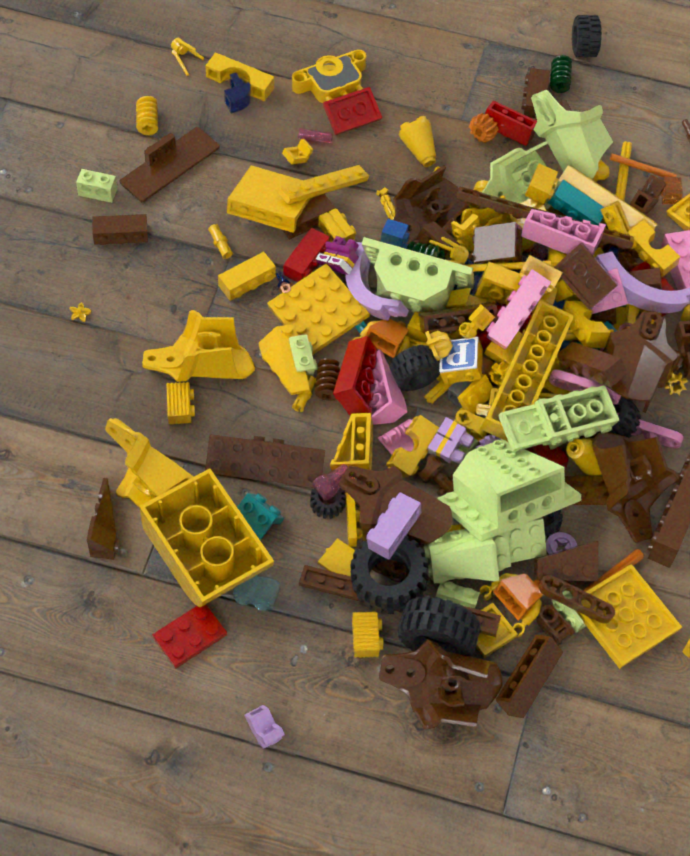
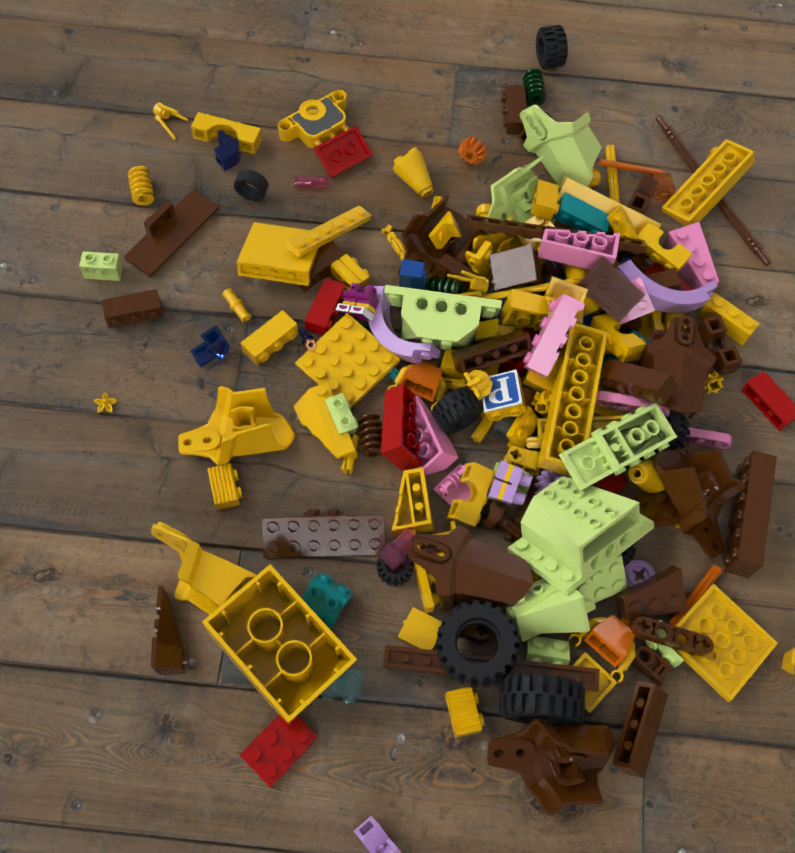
camera: 10 degrees left, 5 degrees up
(192, 275) = (213, 347): none -> clear blue brick
(258, 123) = (253, 178): none -> black tyre
(298, 154) = (299, 202): yellow bracket -> none
(393, 525) = (475, 596): lavender brick -> none
(436, 199) = (444, 231): none -> yellow slope
(480, 319) = (515, 352): yellow plate -> none
(512, 123) = (499, 142): red brick -> none

